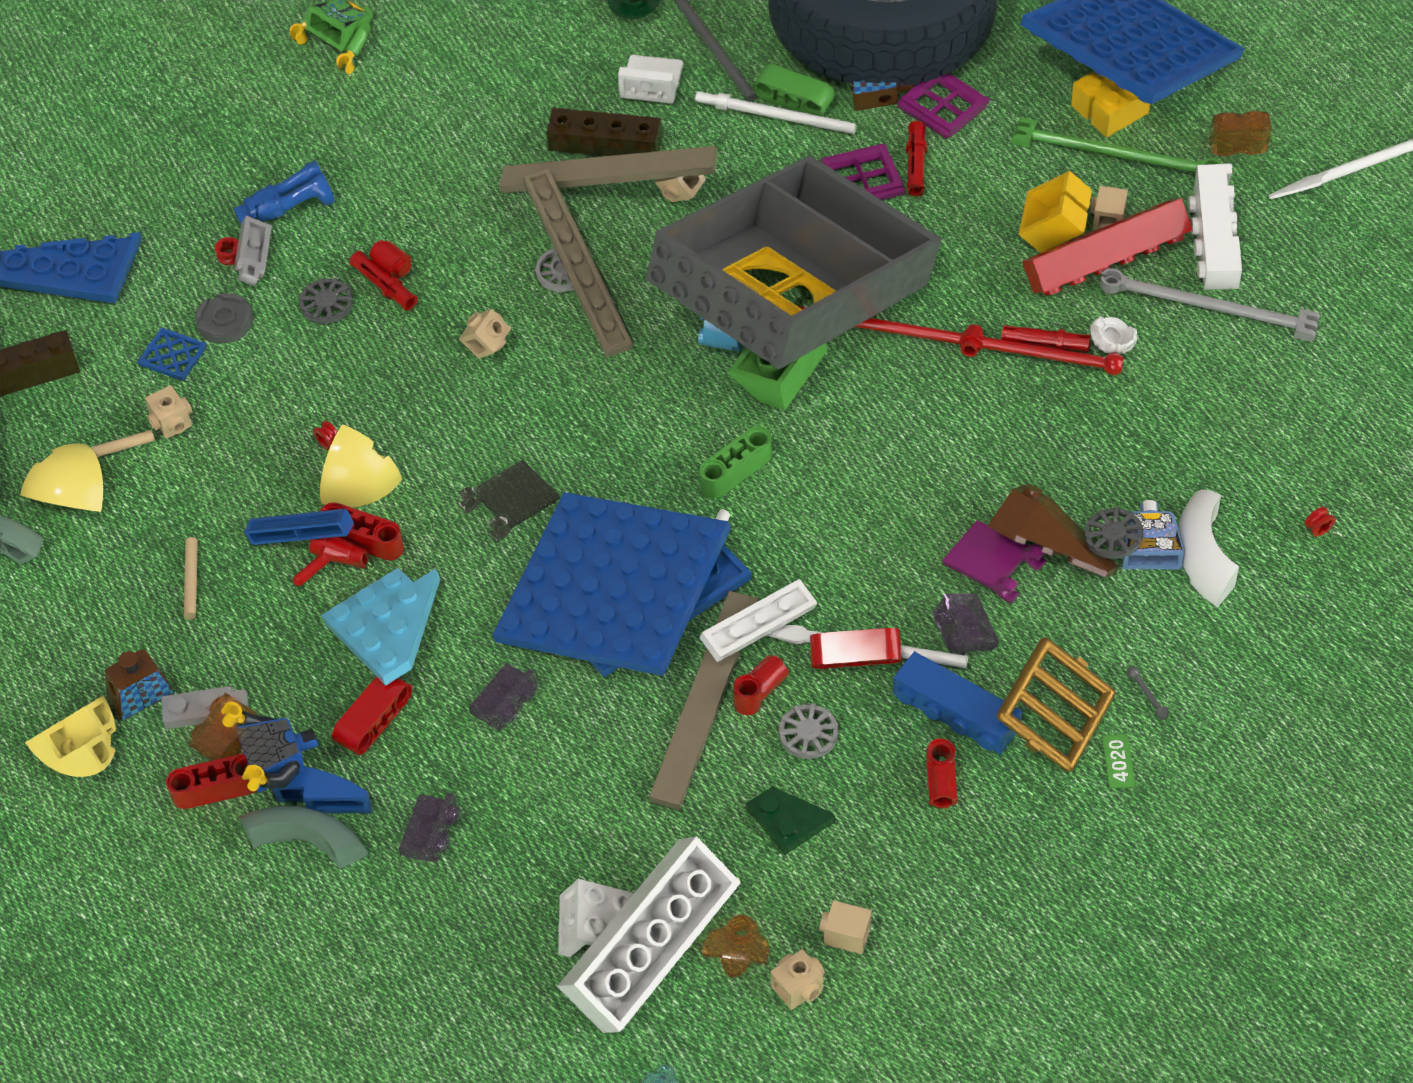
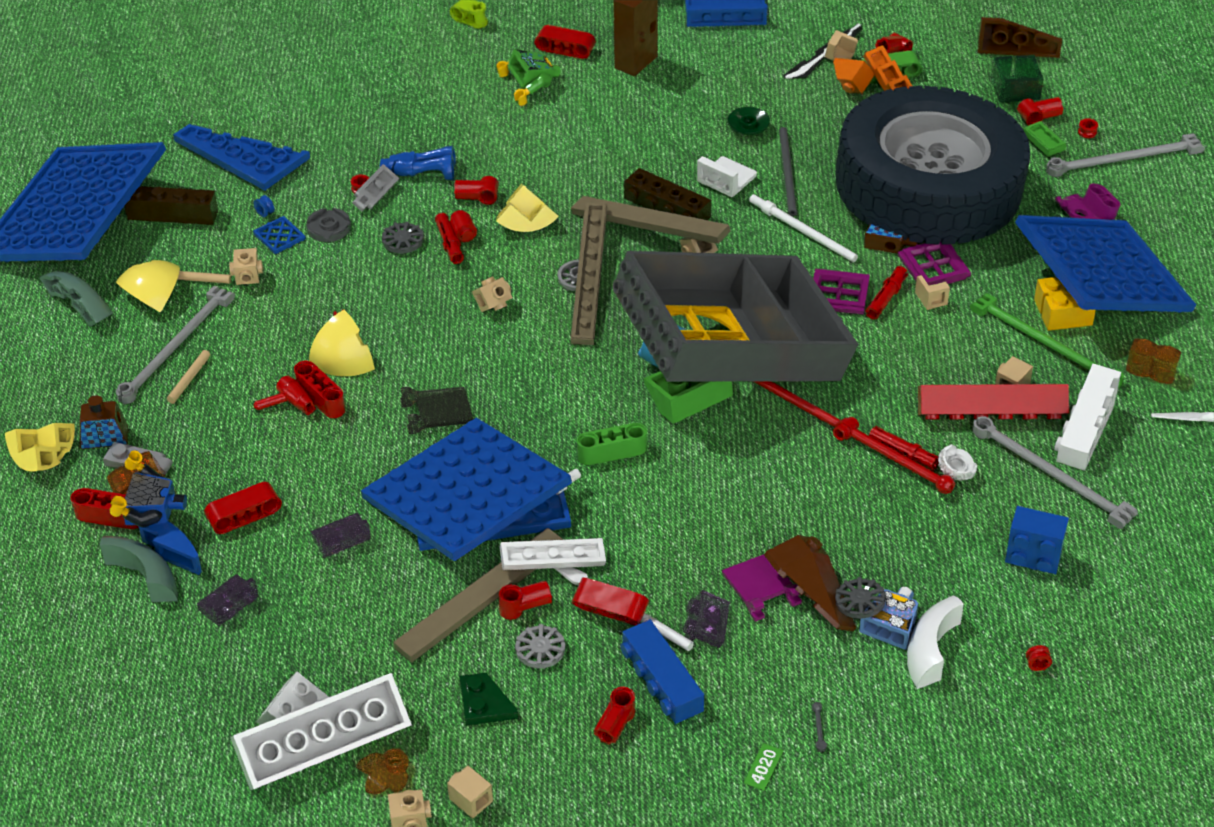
camera: 25 degrees right, 10 degrees down
(131, 324) = (264, 206): none -> blue bush
(154, 468) = (215, 297): none -> light grey hinge
(299, 527) = (276, 367): blue piece -> none
(383, 202) = (482, 190): none -> red piece
(385, 622) = (293, 451): medium azure wing -> none
(452, 213) = (525, 212): none -> light yellow brick
(793, 90) = (824, 217): bright green beam -> none
(962, 142) = (932, 295): none -> tan panel
(1055, 212) = (965, 360): yellow piece -> none
(1093, 714) = (741, 737): pearl gold bar -> none
(1248, 391) = (1036, 539): none -> blue brick

